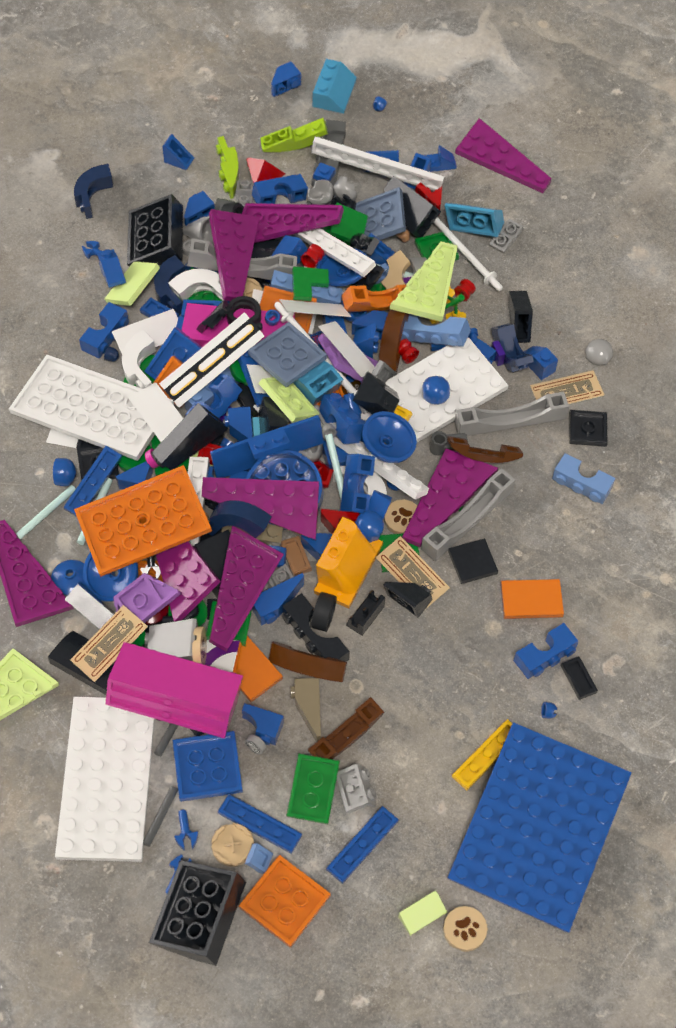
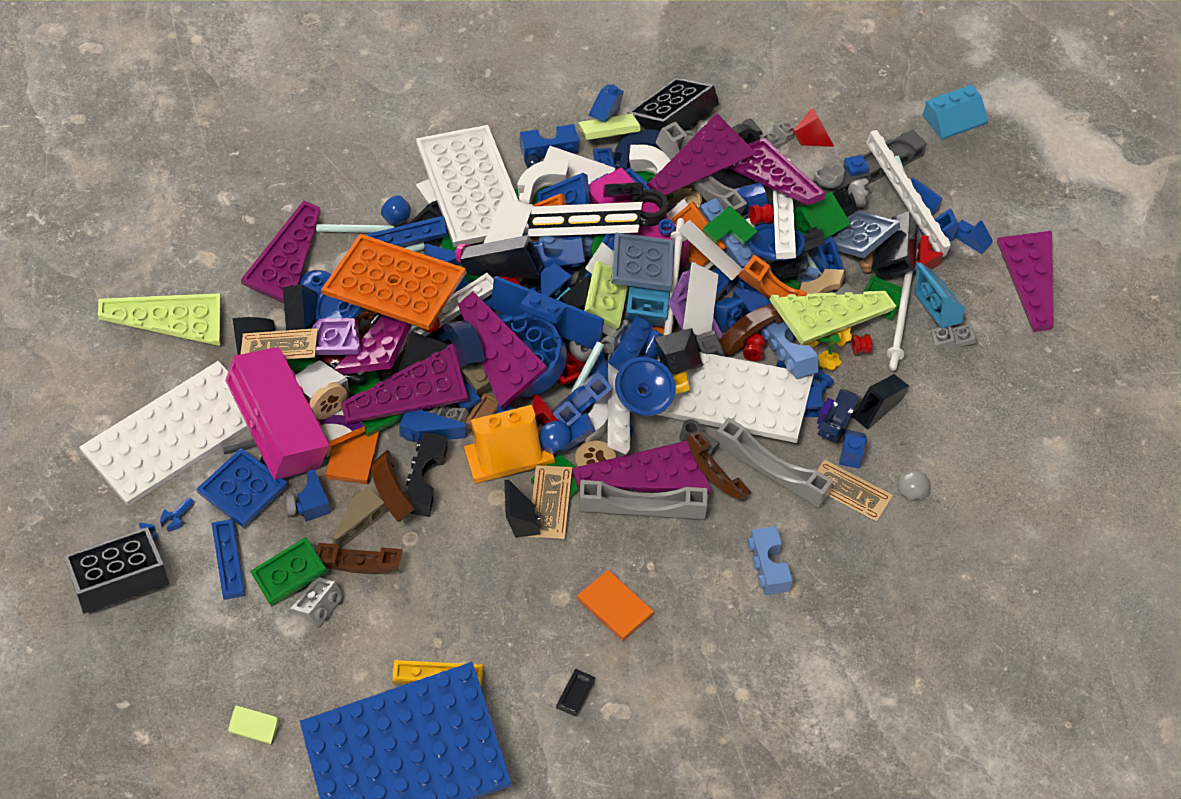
camera: 45 degrees right, 5 degrees down
(88, 184) = (668, 34): dark blue arch -> none
(94, 245) = (620, 81): blue bar -> none
(160, 816) = (172, 489): dark grey bar -> none
(176, 153) = (763, 63): blue slope -> none
(198, 207) = (730, 112): blue slope -> none
(229, 166) = (791, 107): lime slope -> none
(232, 844) = (193, 554): tan tile -> none
(259, 858) = (196, 577): medium blue plate -> none
(284, 901) = (177, 621): orange plate -> none
(285, 79) = (921, 76): blue slope -> none
(290, 186) = (795, 144): blue arch -> none
(294, 139) = (866, 121): lime slope -> none
(323, 611) = (447, 463): black tyre -> none
(362, 844) = (275, 641): blue tile -> none
(366, 613) = (479, 498): black hinge -> none
(379, 104) = (978, 154): blue hinge -> none
(436, 390) = (733, 390): blue hair -> none
(465, 928) = (267, 766): tan tile -> none
(473, 561) = (606, 537): black tile -> none
(533, 661) = (588, 656): blue arch -> none
(548, 710) = (521, 688): blue hinge -> none
(588, 428) = (828, 531): black tile -> none

